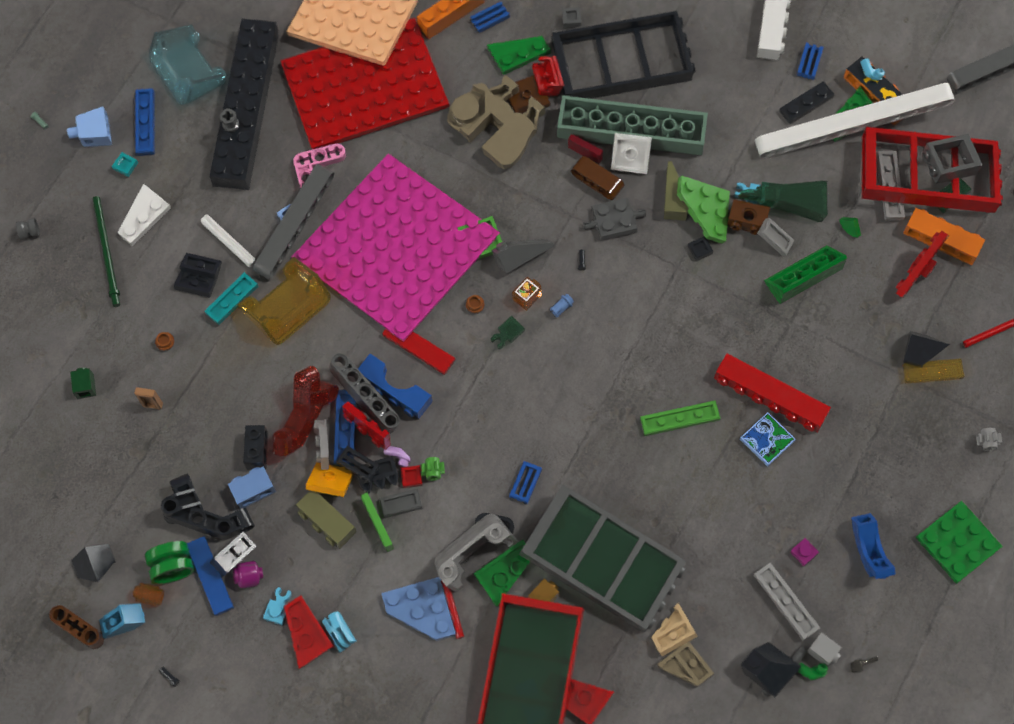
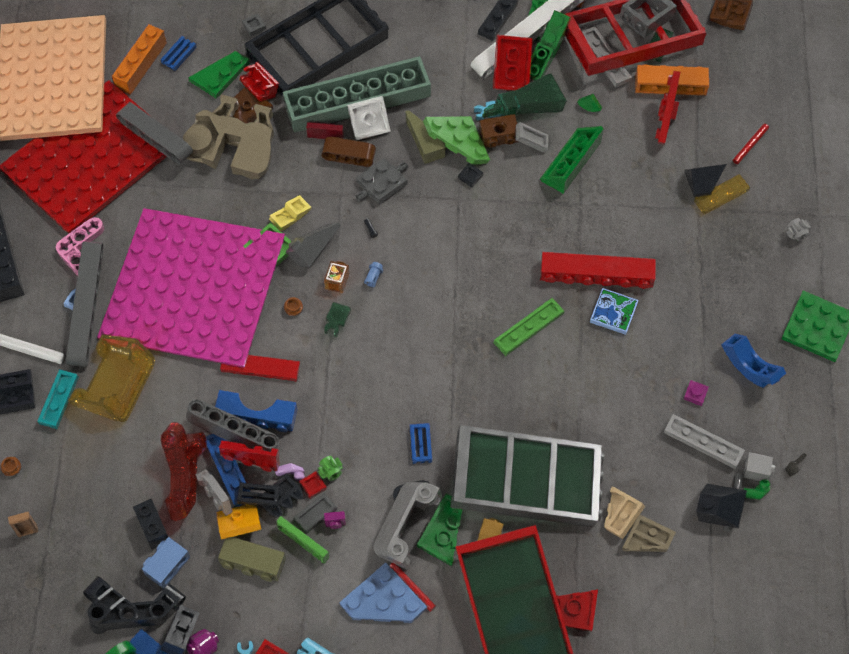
camera: 30 degrees left, 5 degrees down
(414, 517) = (335, 519): none -> magenta plate
(428, 87) = (154, 133): none -> dark grey beam
(518, 214) = (291, 213): none -> light yellow slope
(793, 155) = (512, 62): none -> red plate
(838, 153) = (549, 44): none -> green slope

